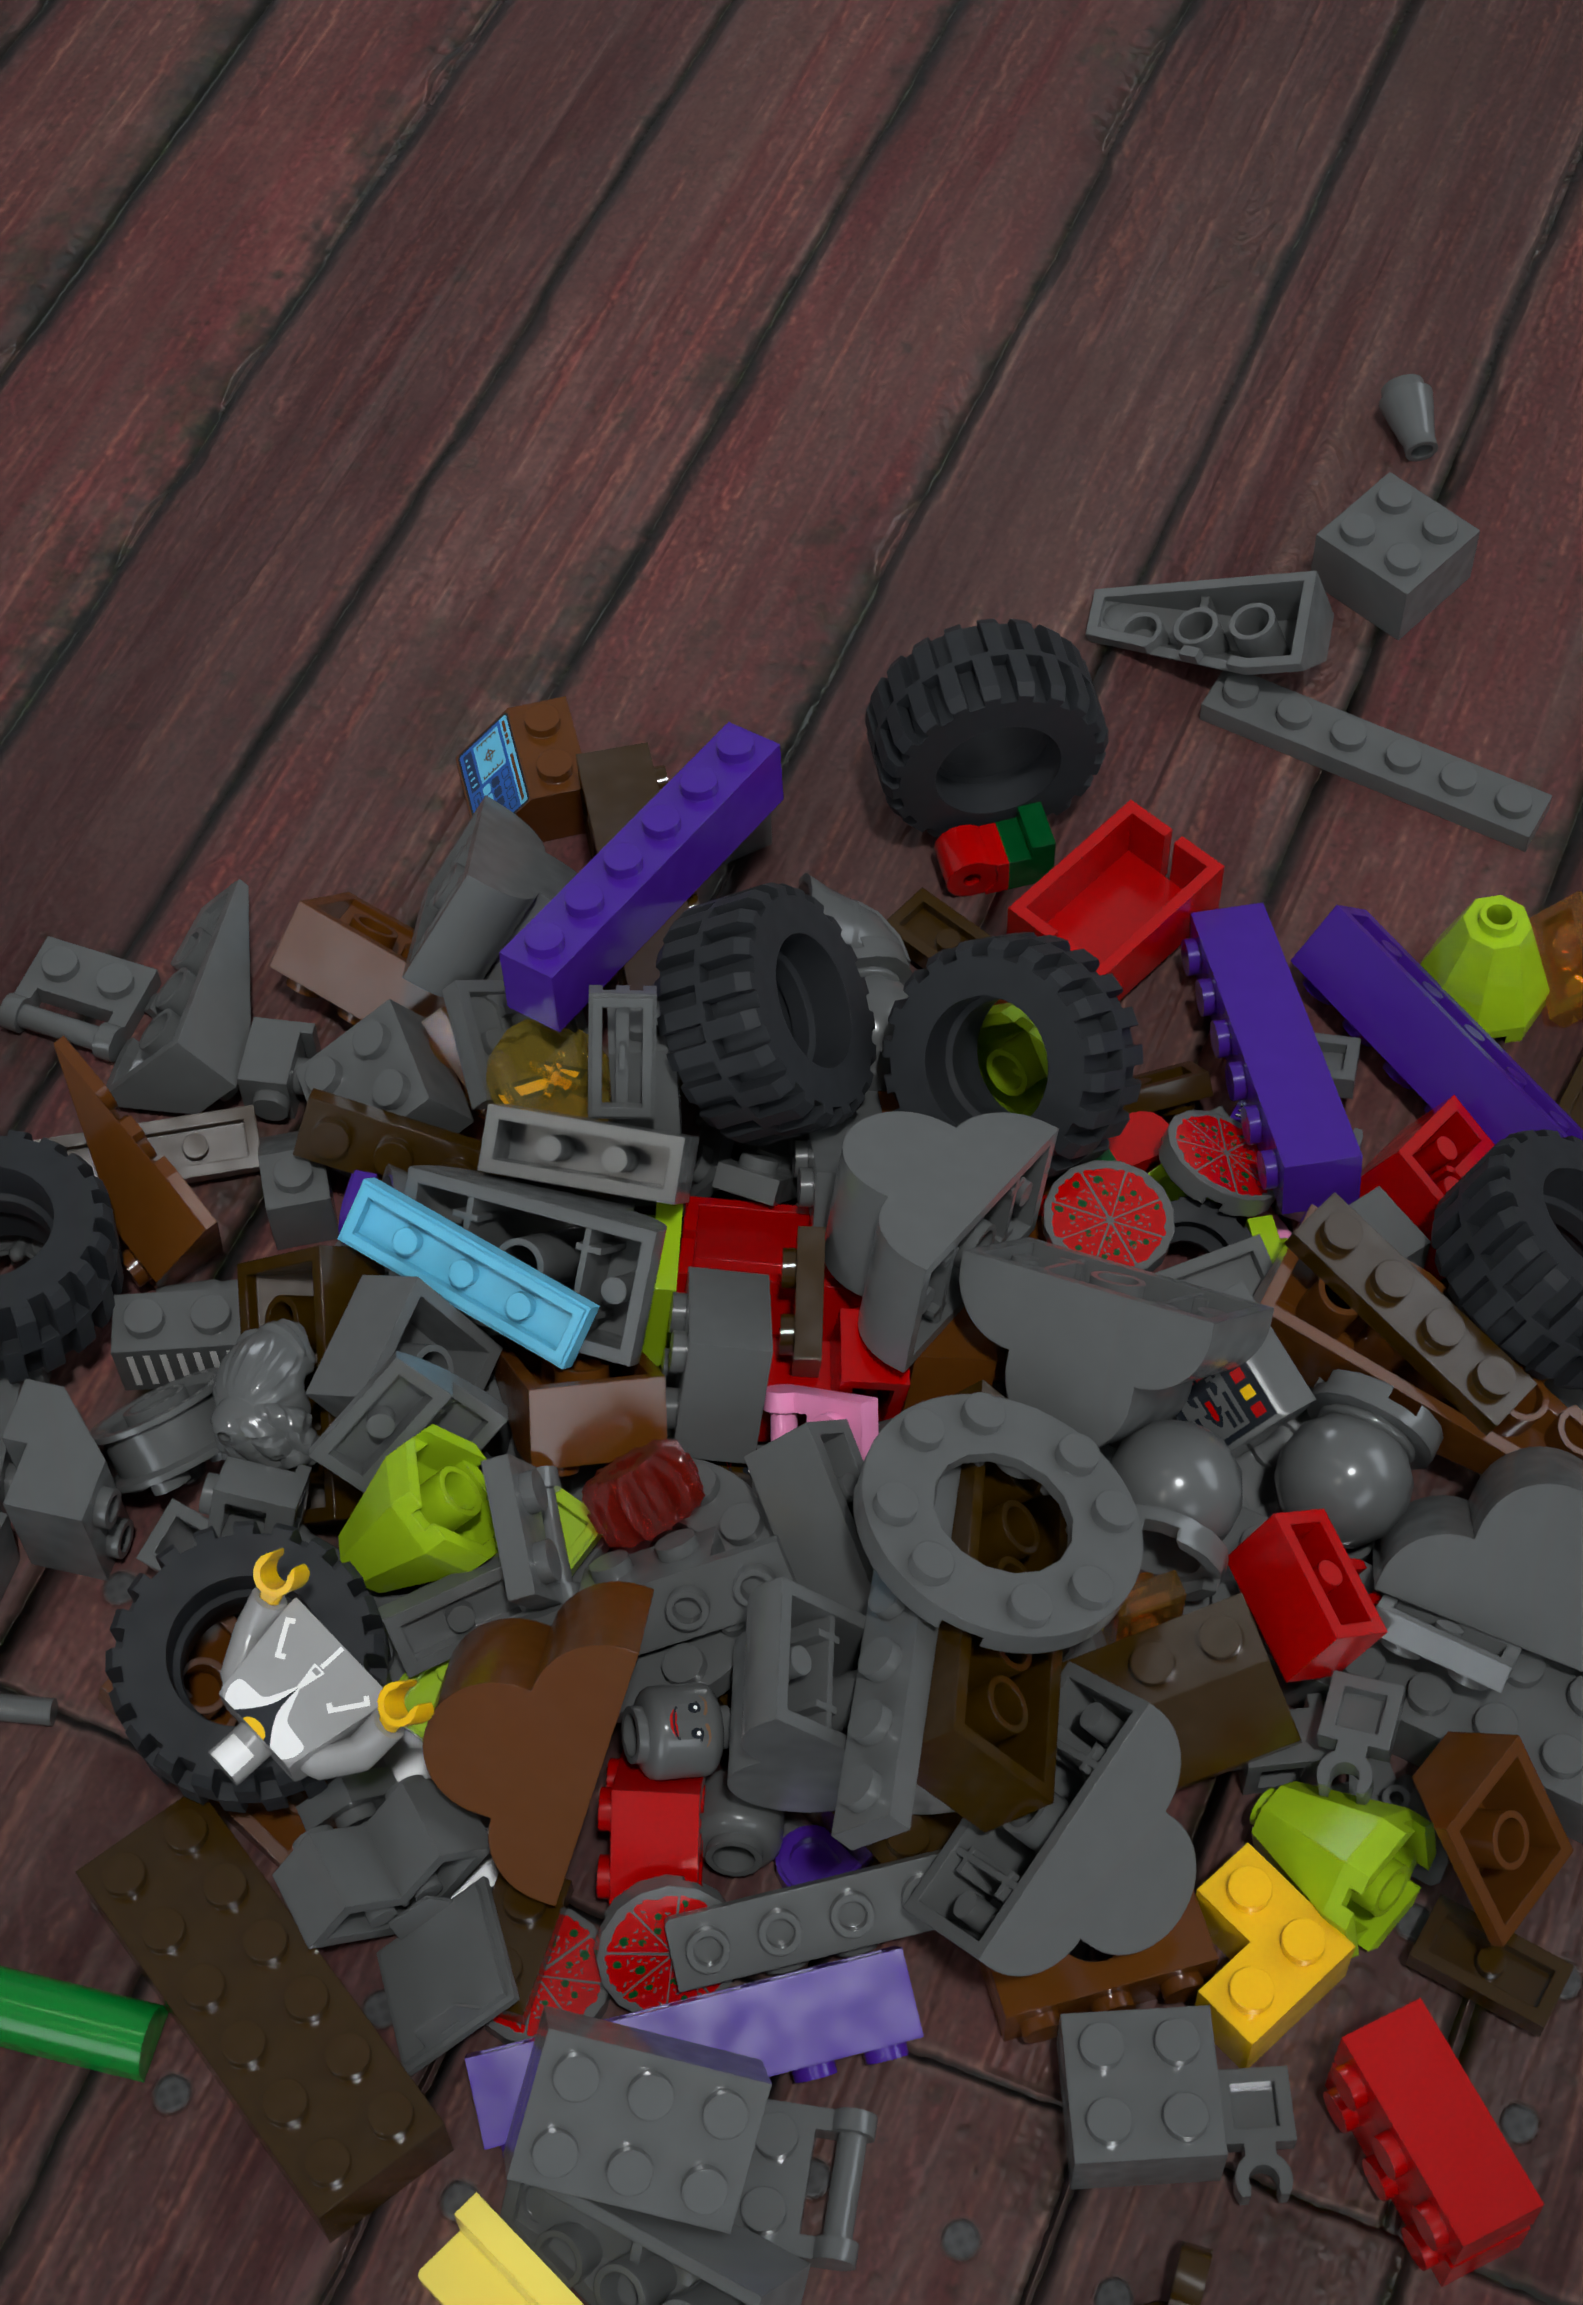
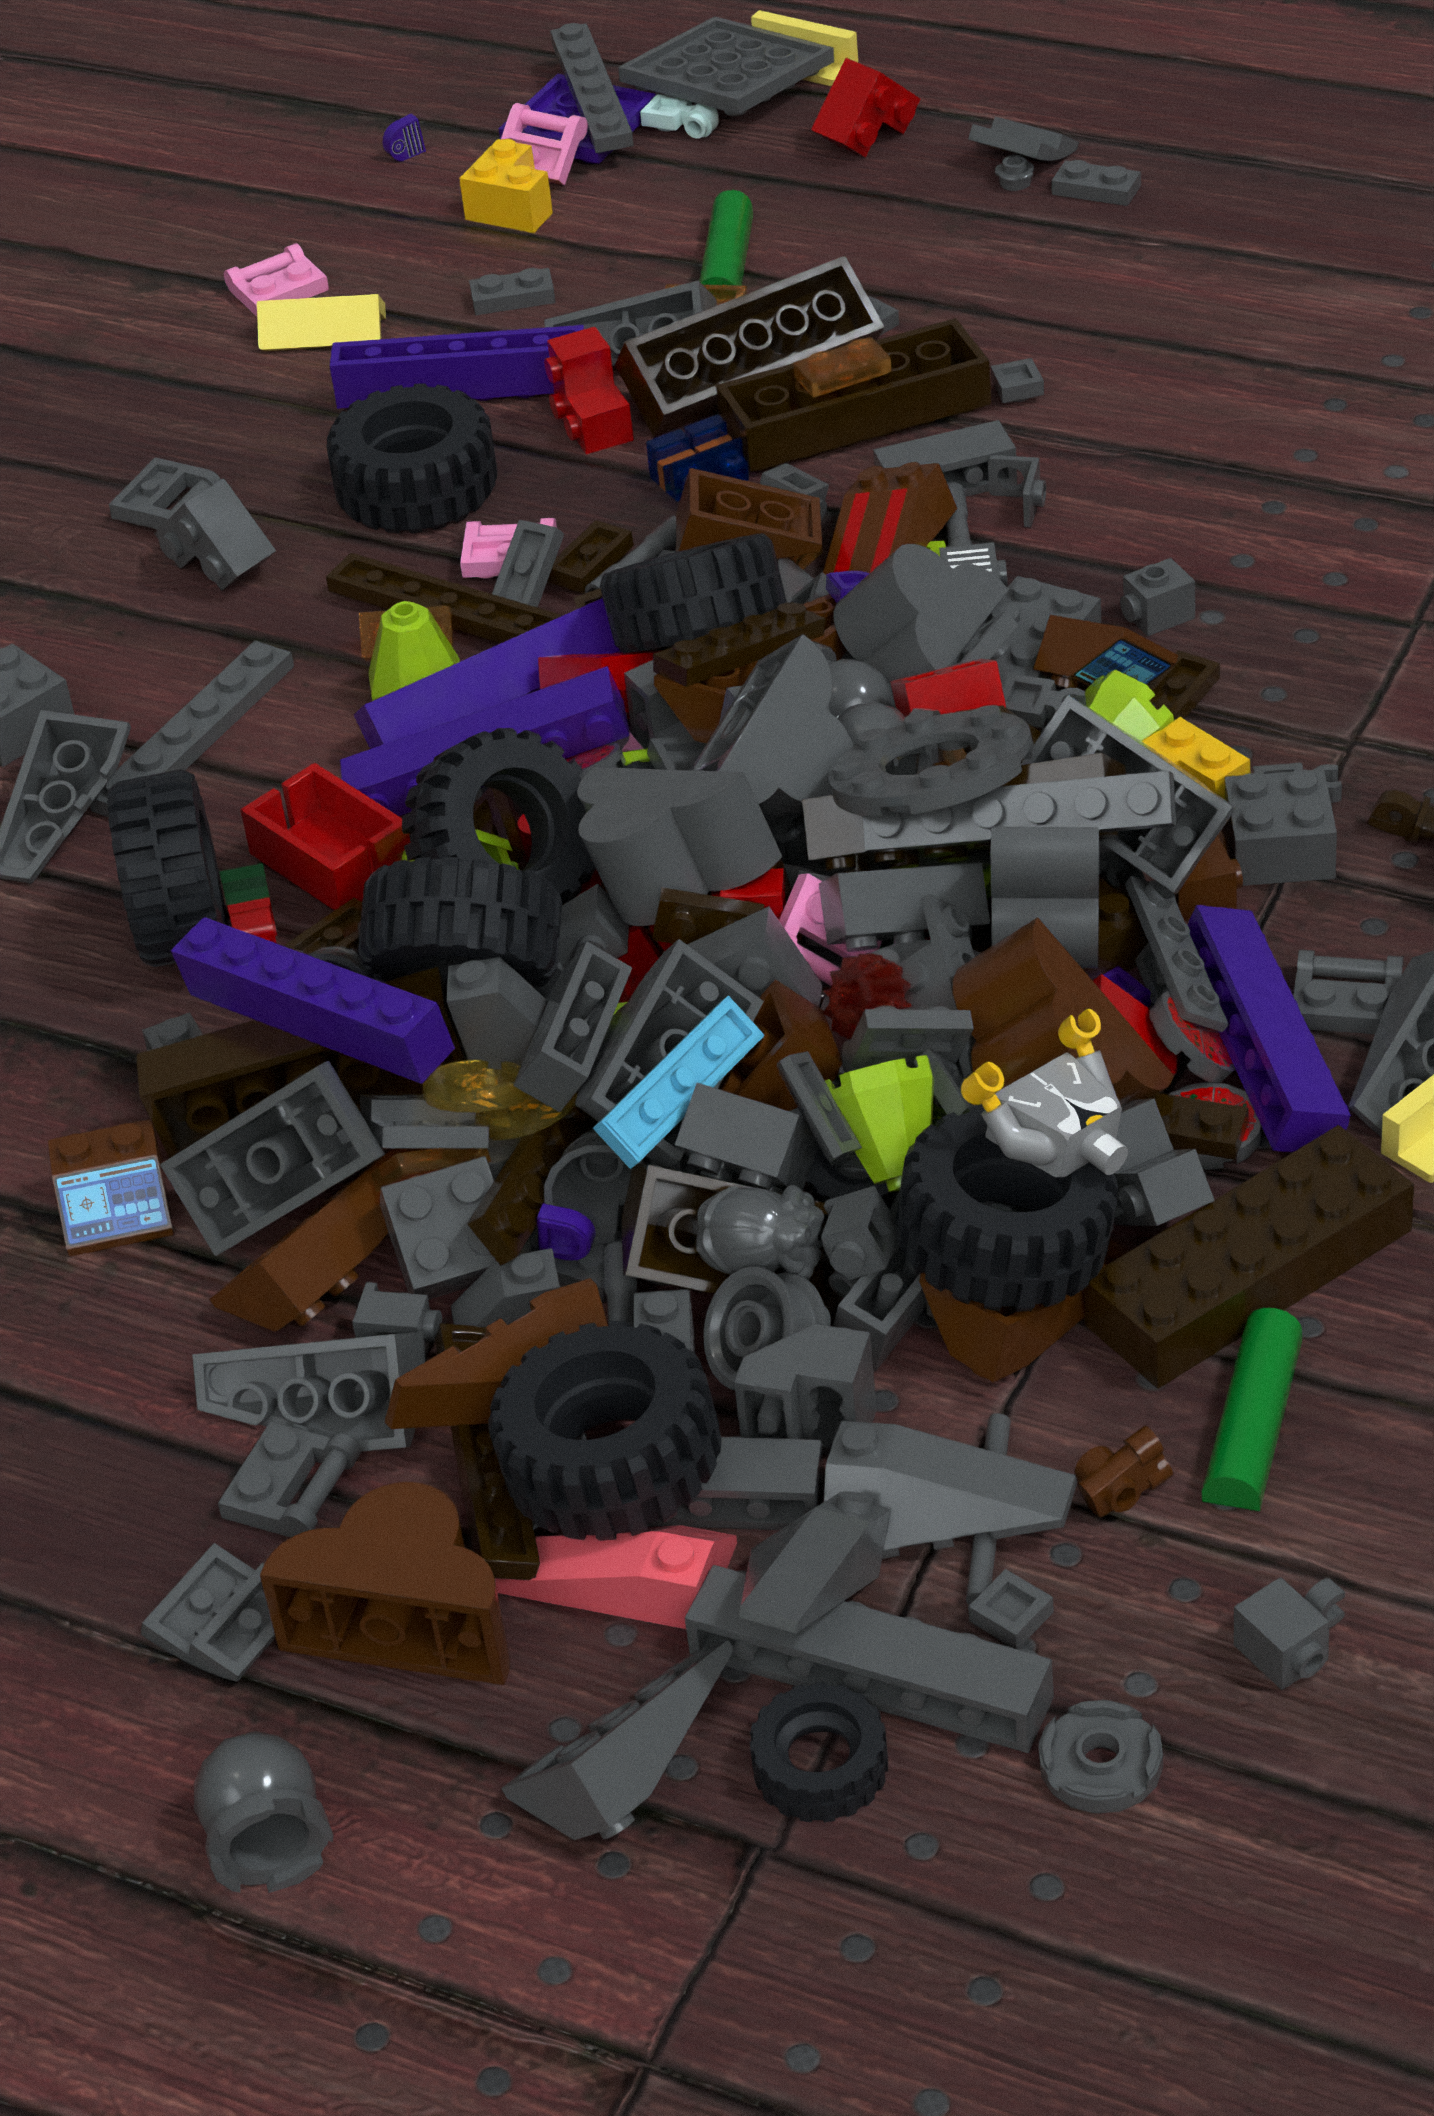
camera: 85 degrees left, 15 degrees down
(445, 1973) = (1228, 1136): dark grey piece -> none
(622, 1000) = (503, 976): dark grey tile -> none
(636, 2119) = (1330, 1019): dark grey brick -> none
(1430, 2144) = (1305, 694): red piece -> none

